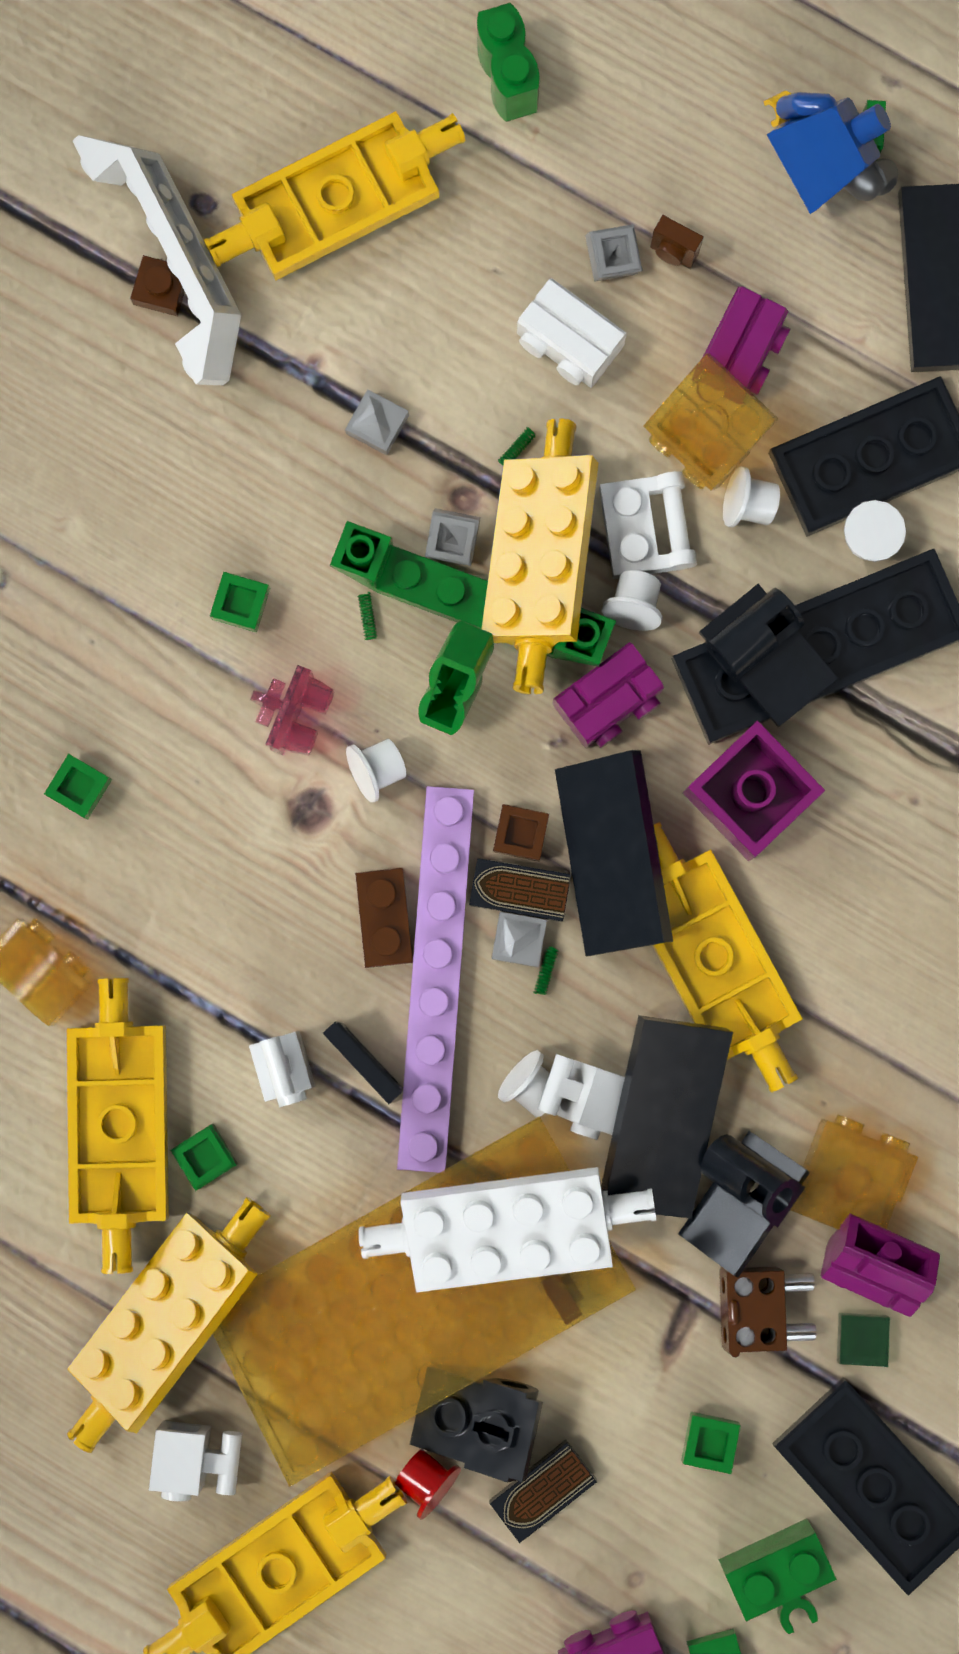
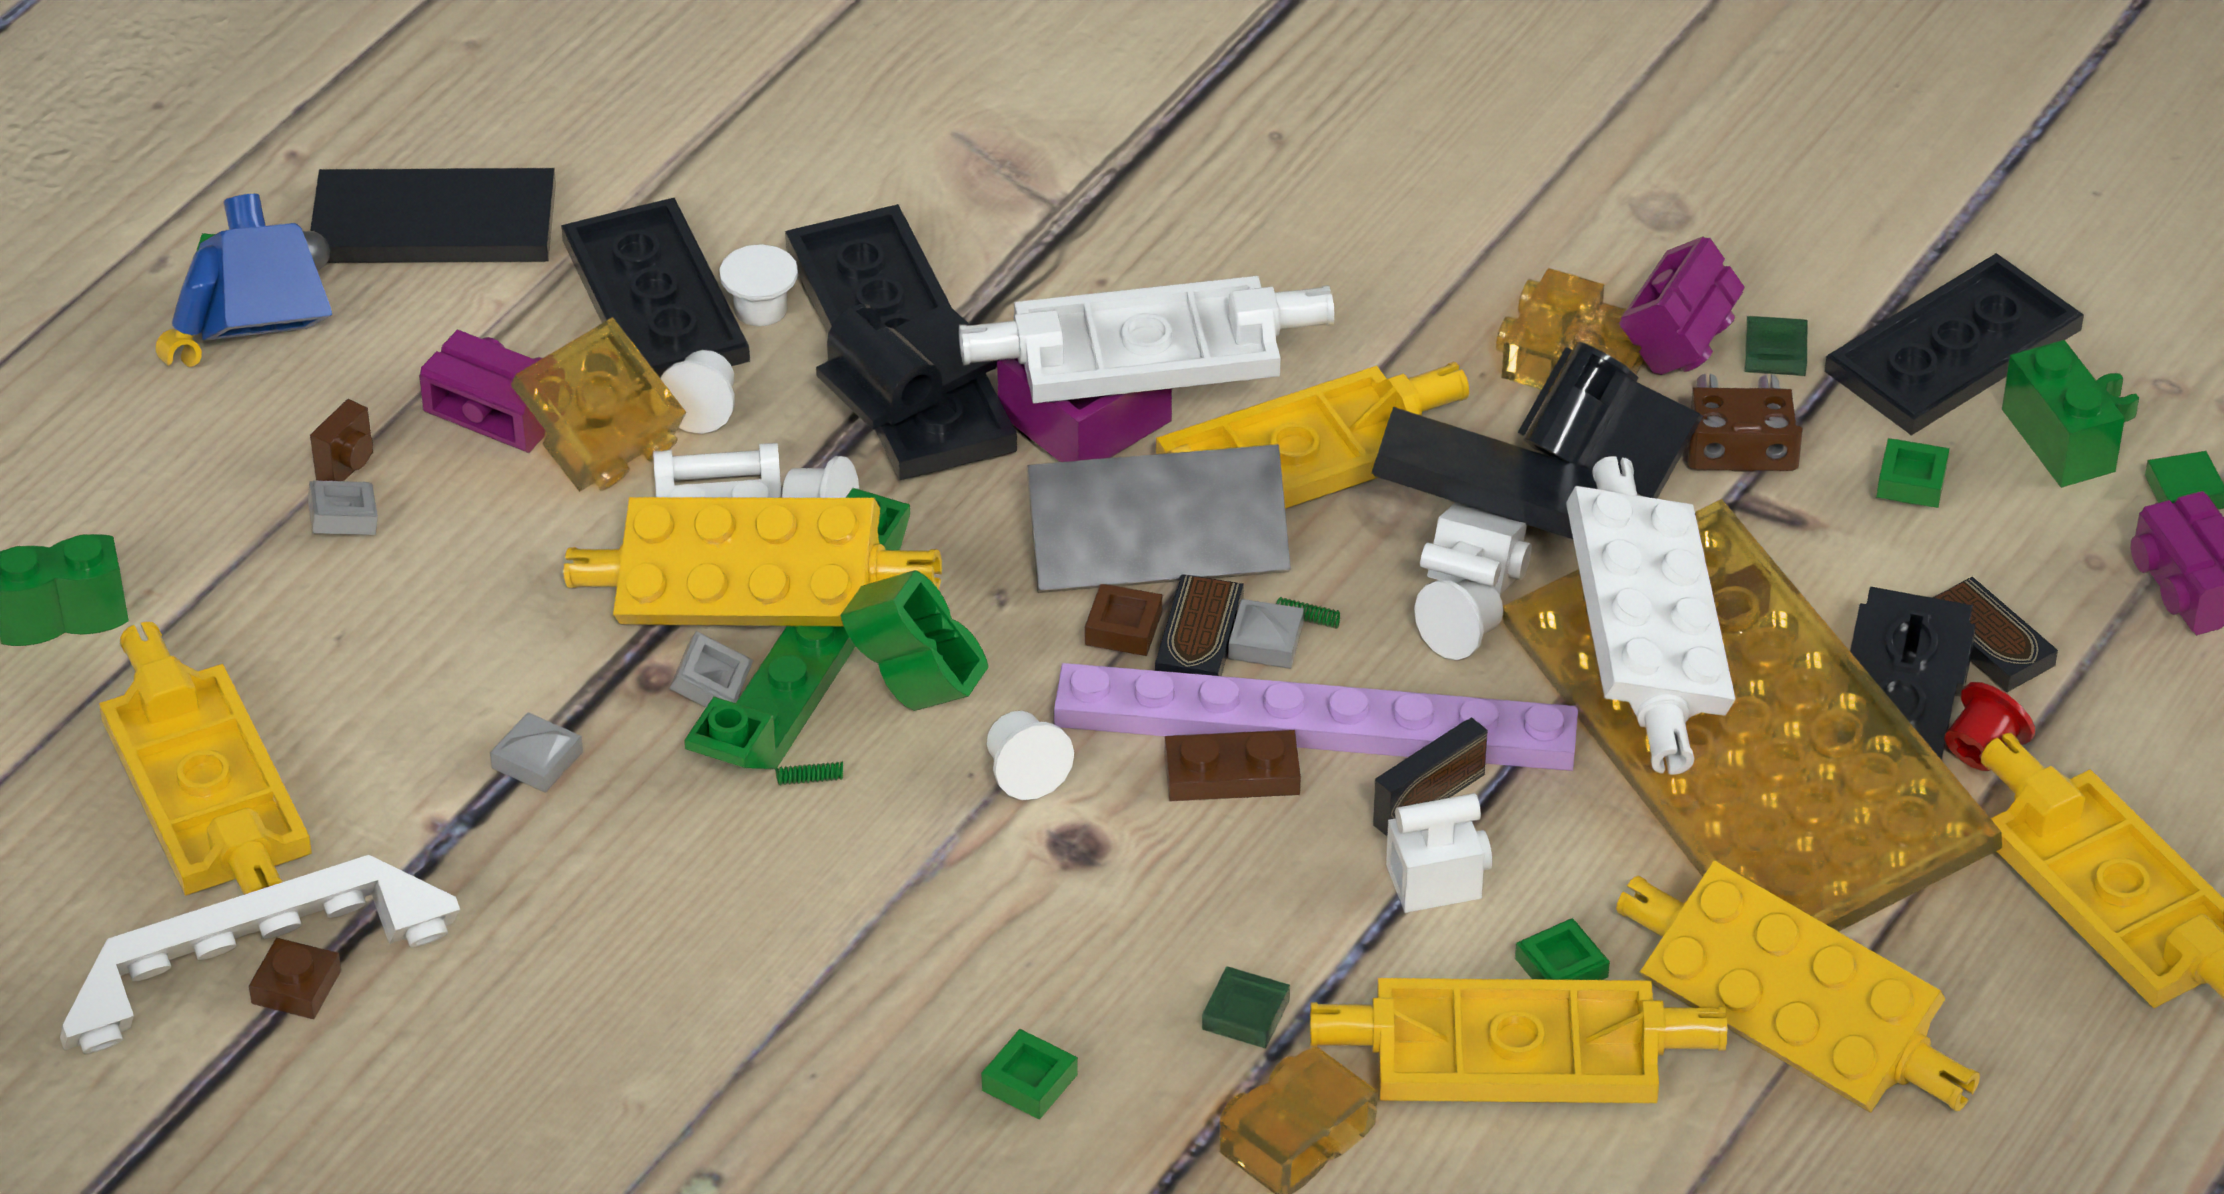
camera: 90 degrees left, 40 degrees down
(151, 934) = (1246, 1007): none -> clear green tile
(184, 1458) = (1981, 969): white brick -> none
(240, 602) = (777, 892): green plate -> none
(302, 692) = (940, 841): clear pink hips -> none
(518, 441) = (605, 632): green leg -> none
(569, 334) = (448, 546): white brick -> none
(609, 696) = (954, 520): magenta brick -> none
(767, 834) = (1147, 337): none -> white plate

